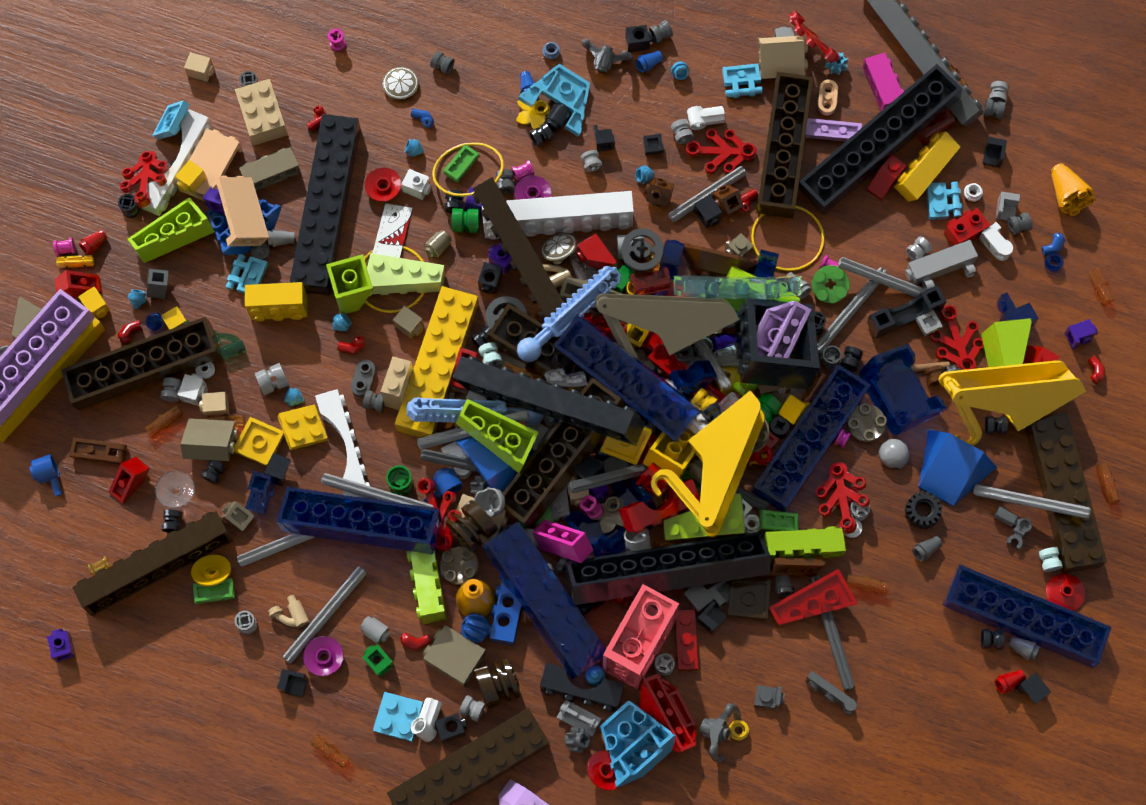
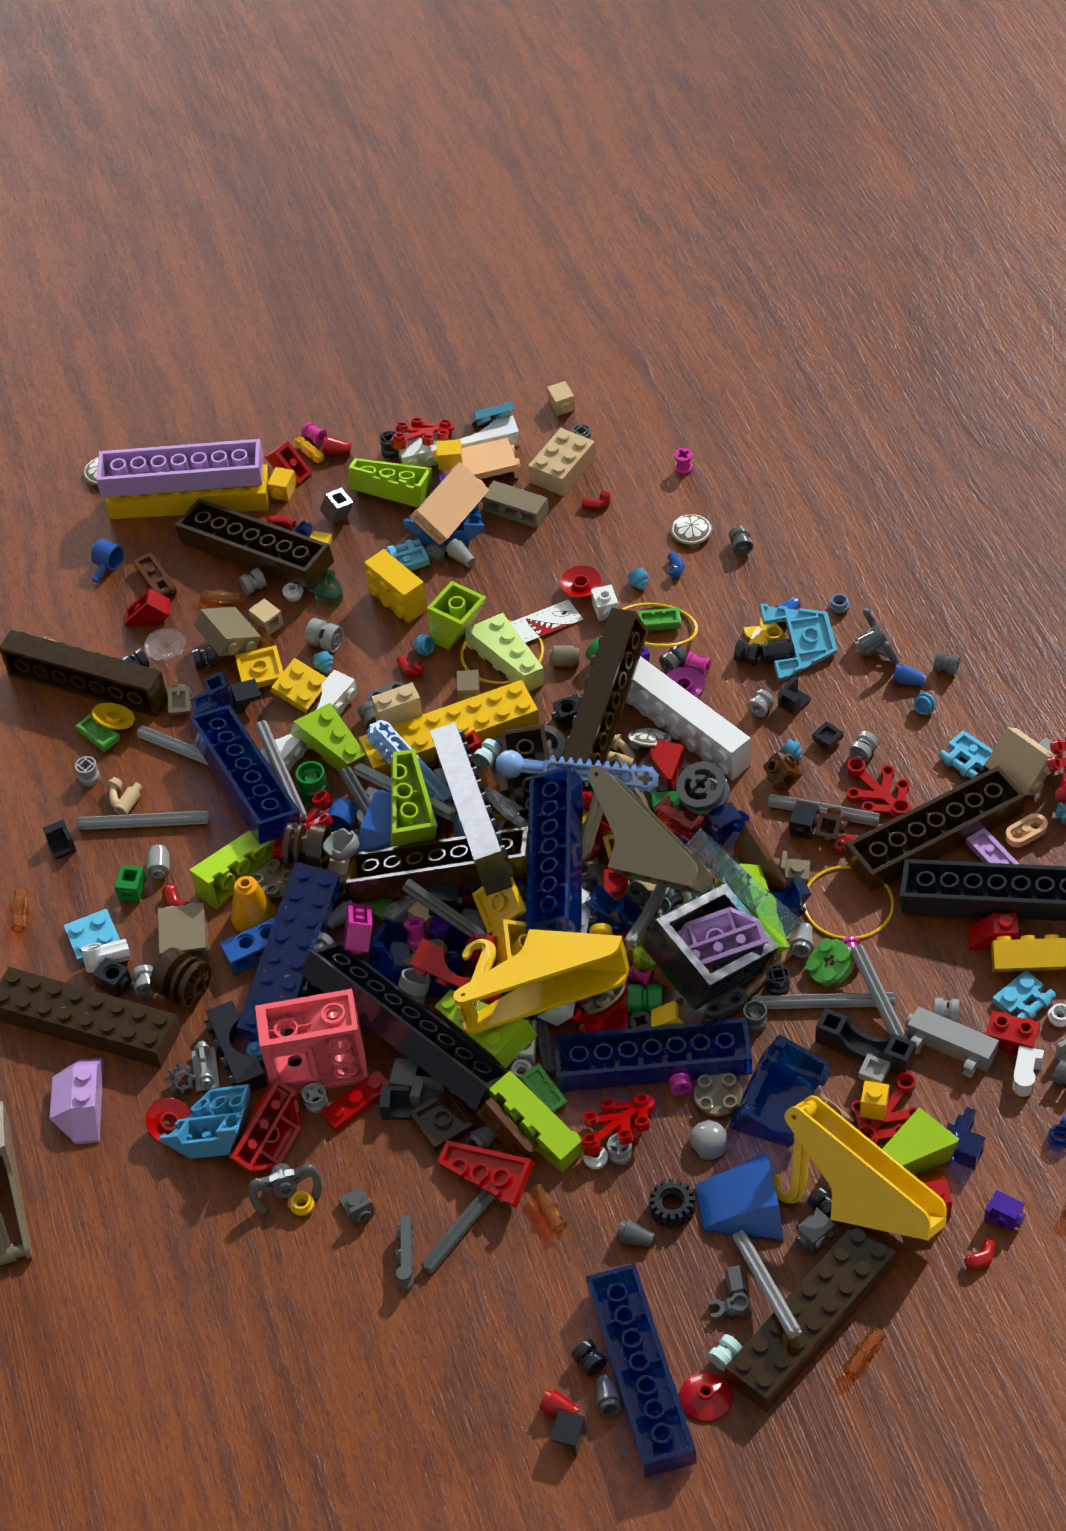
camera: 55 degrees right, 20 degrees down
(137, 298) = (312, 506): dark azure plate -> none
(192, 389) = (266, 589): white brick -> none
(319, 647) = (102, 836): magenta dish -> none
(325, 202) = (532, 551): black brick -> none
(378, 442) = (329, 737): none -> lime wedge
(475, 627) = (220, 927): blue piece -> none
(634, 44) = (920, 651): black brick -> none
(701, 117) = (894, 750): white piece -> none
(851, 358) = (767, 1033): black wheel -> none
(953, 341) = (874, 1100): none -> yellow brick
(1010, 445) = (815, 1232): none -> dark grey window

